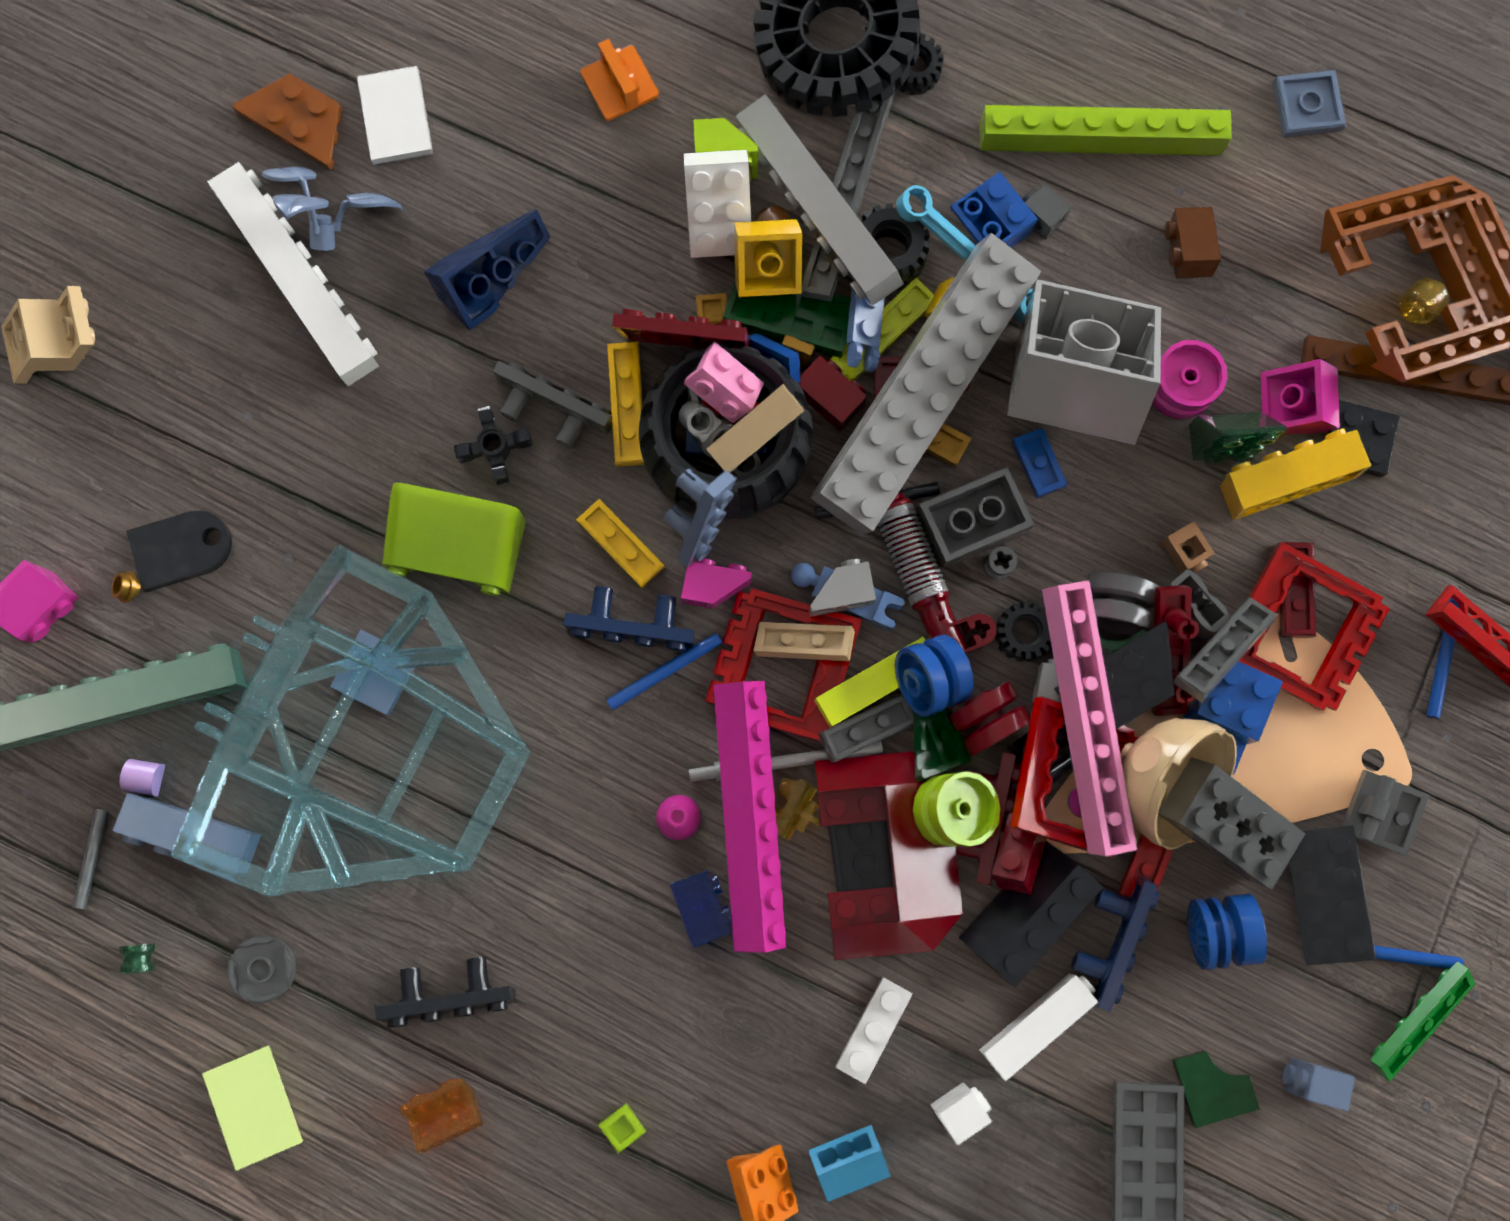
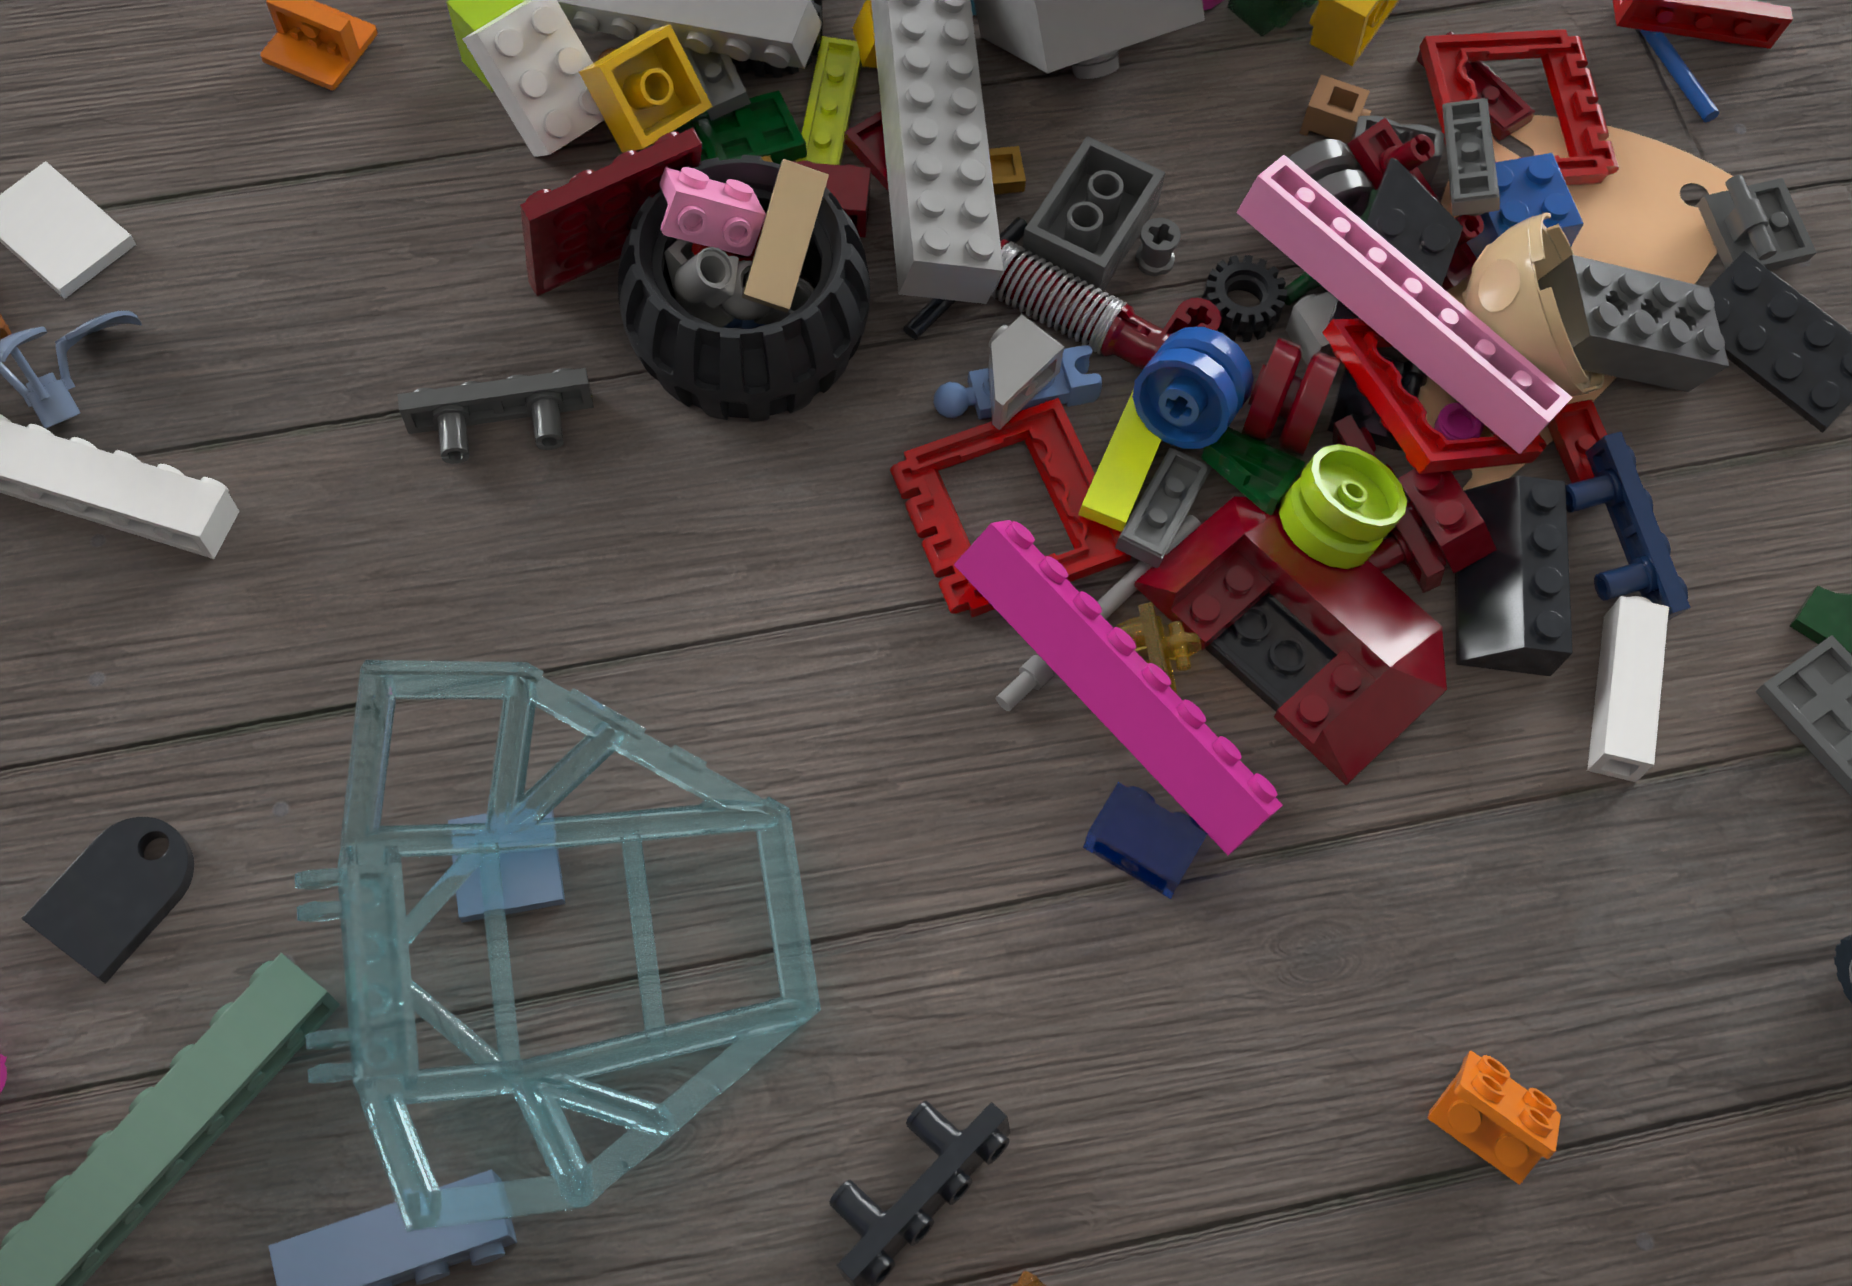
camera: 40 degrees left, 15 degrees down
(125, 586) = (70, 989): pearl gold plate -> none
(141, 777) = (271, 1220): lavender brick -> none
(452, 537) = (491, 605): lime windscreen -> none
(469, 451) = (467, 513): black pin -> none
(481, 272) = (300, 322): dark blue wedge -> none
(614, 630) = (782, 598): dark blue plate -> none
(620, 543) = (706, 509): yellow tile -> none
(622, 1128) = (1270, 1182): lime tile -> none
(625, 401) = (582, 345): yellow tile -> none
(664, 671) = (874, 613): blue bar -> none
(678, 817) = (1028, 762): dark pink brick -> none
(709, 513) = (807, 352): sand blue plate -> none
(711, 584) = (854, 475): dark pink slope -> none
(804, 641) = (1015, 460): tan plate -> none
(849, 1163) = (1568, 1004): dark azure brick -> none
(864, 332) = (809, 108): medium blue hinge -> none
(873, 1030) = (1458, 834): white plate -> none
(962, 1112) = (1641, 836): white brick -> none
(1039, 463) = (1110, 125): blue plate -> none
(1227, 931) = (1725, 439): blue wheel -> none

